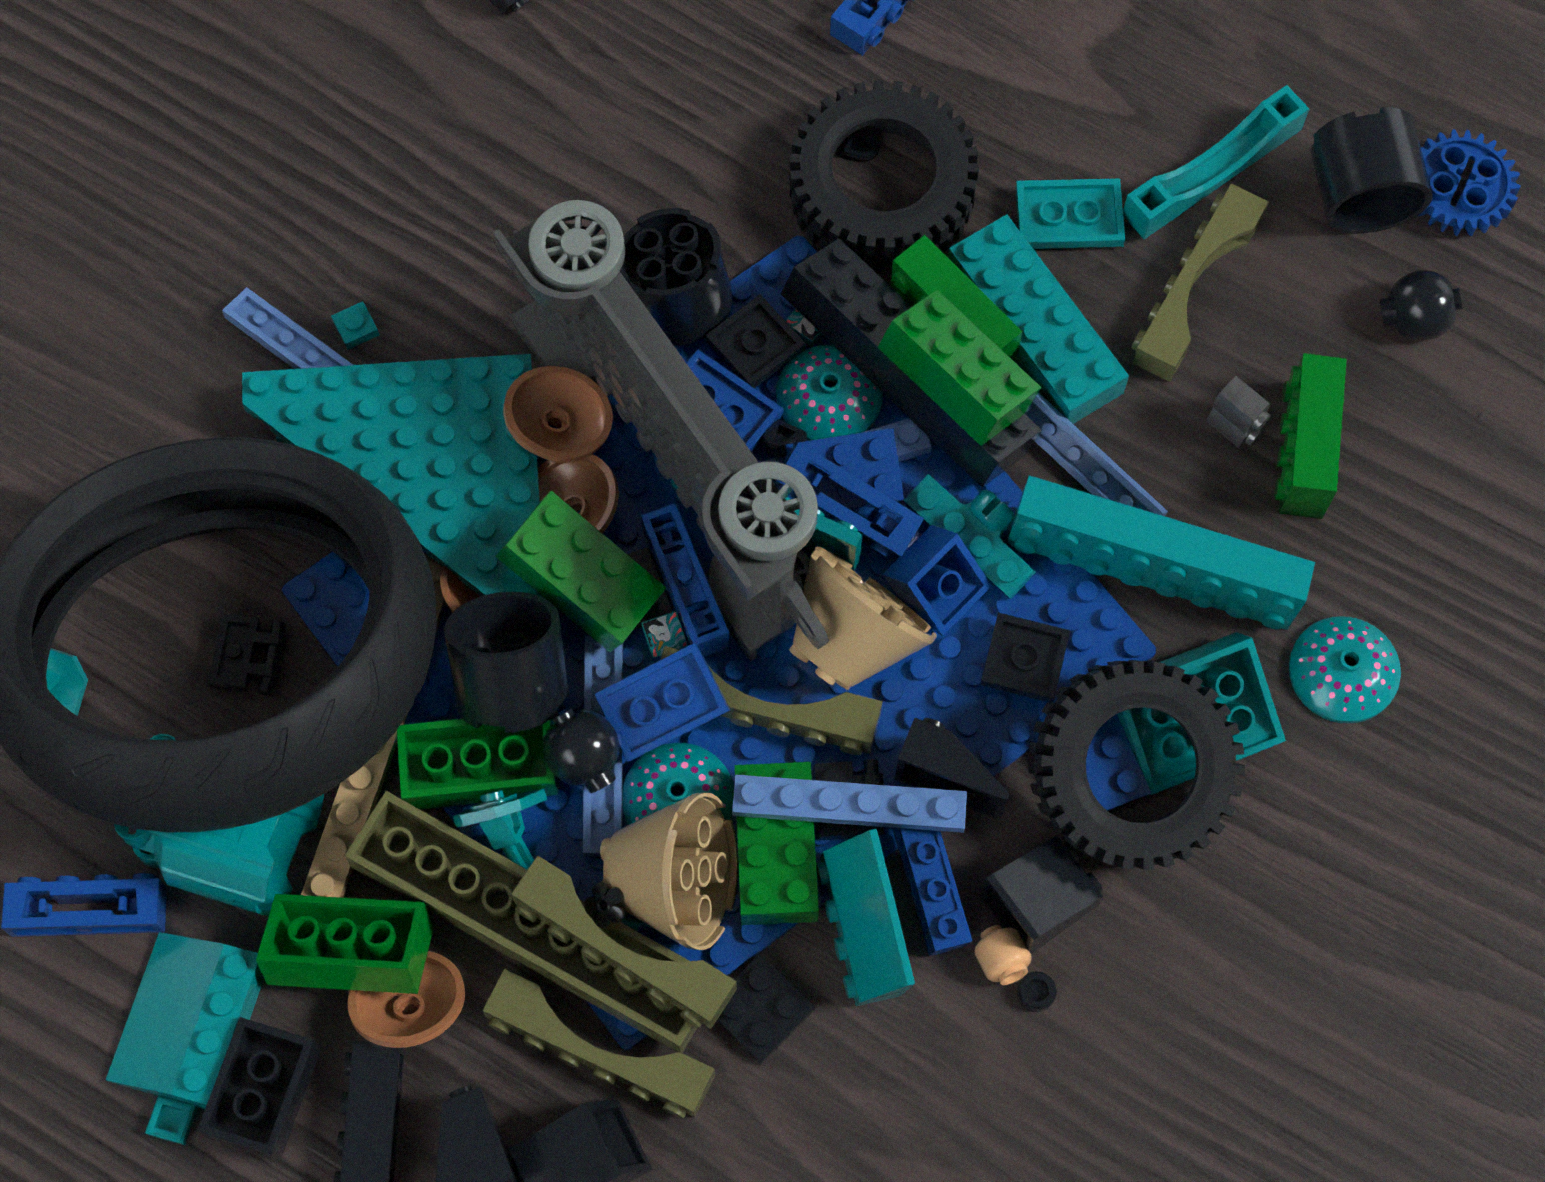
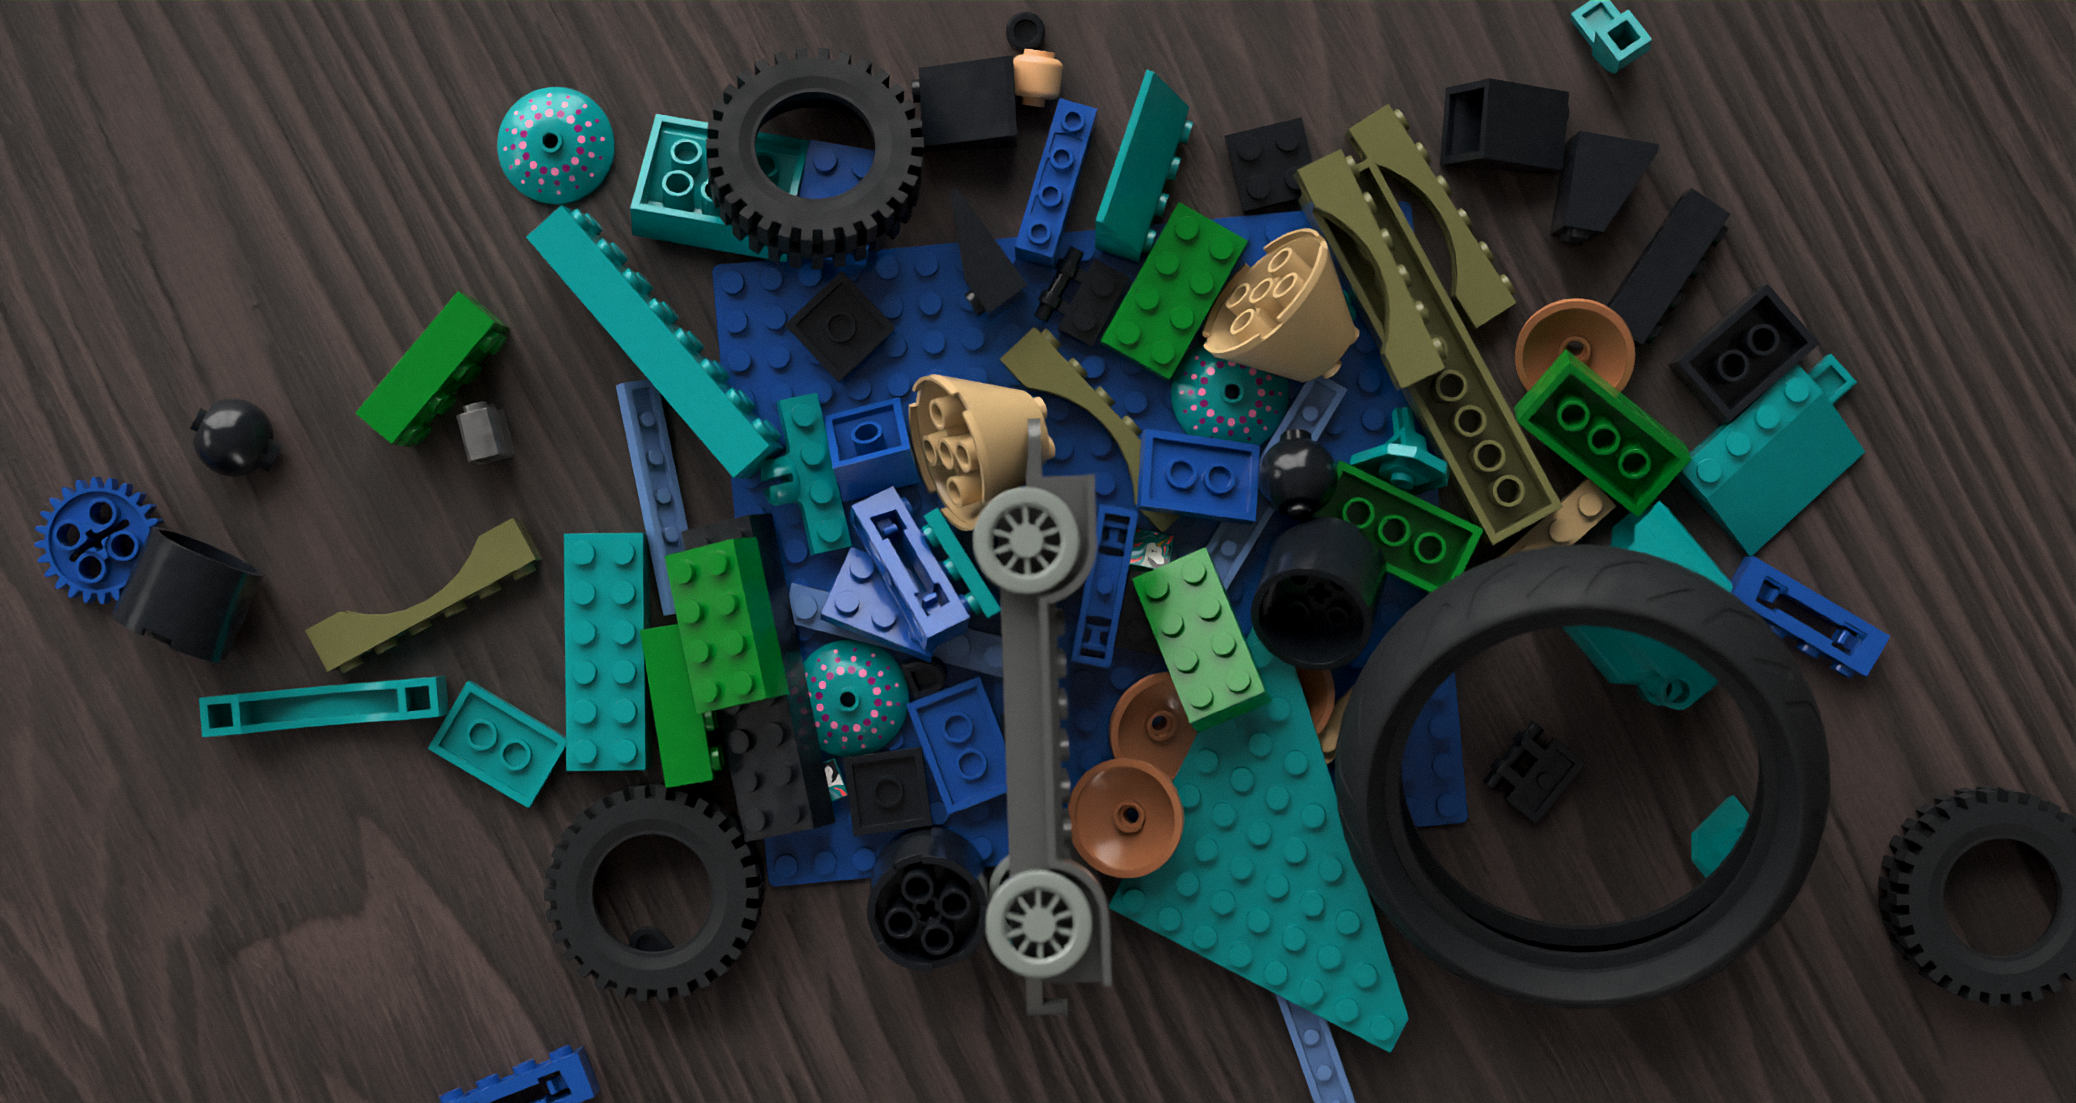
camera: 145 degrees left, 20 degrees up
(355, 325) = (1249, 1051): teal plate -> none
(604, 904) = (1364, 315): black plant -> none
(849, 803) = (1093, 275): medium blue plate -> none

